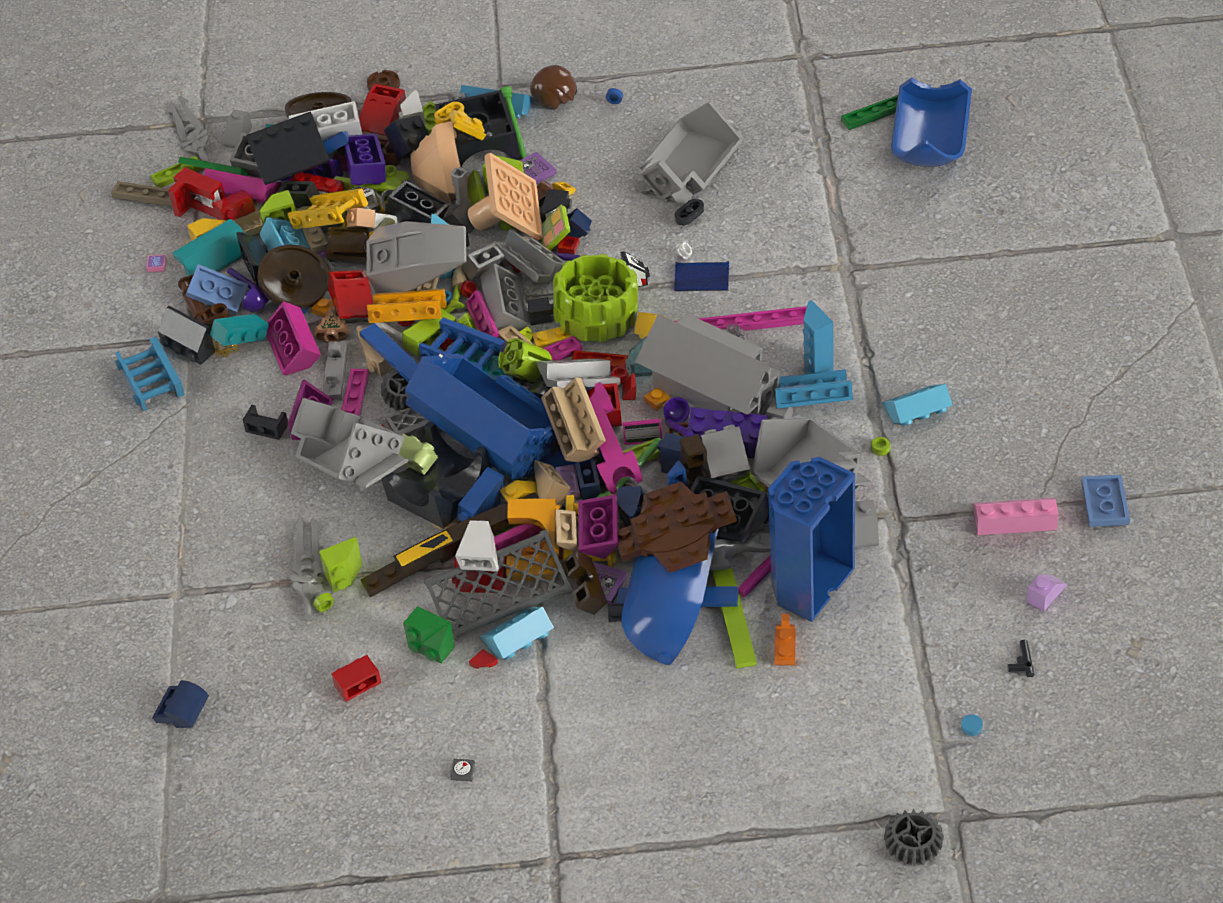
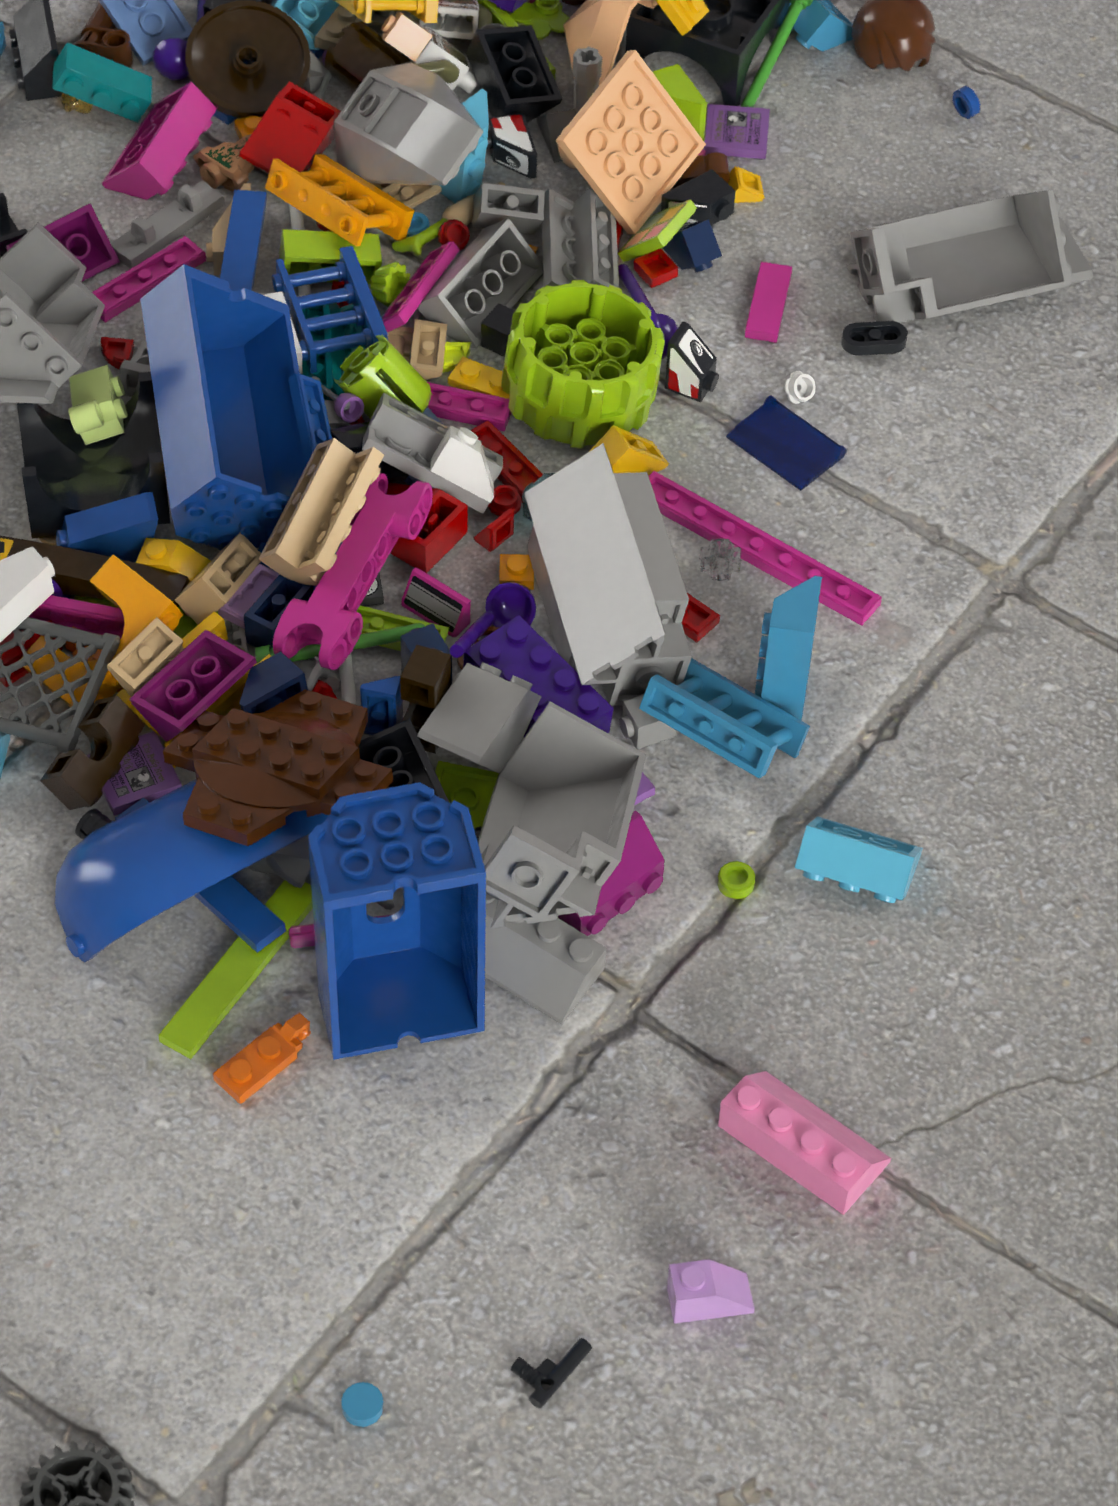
camera: 35 degrees right, 5 degrees up
(523, 379) = (346, 405): none -> medium lavender hinge
(596, 366) = (463, 462): none -> white slope
(629, 227) = (768, 302): none -> dark pink tile
(1105, 500) = (961, 1229): medium blue plate -> none

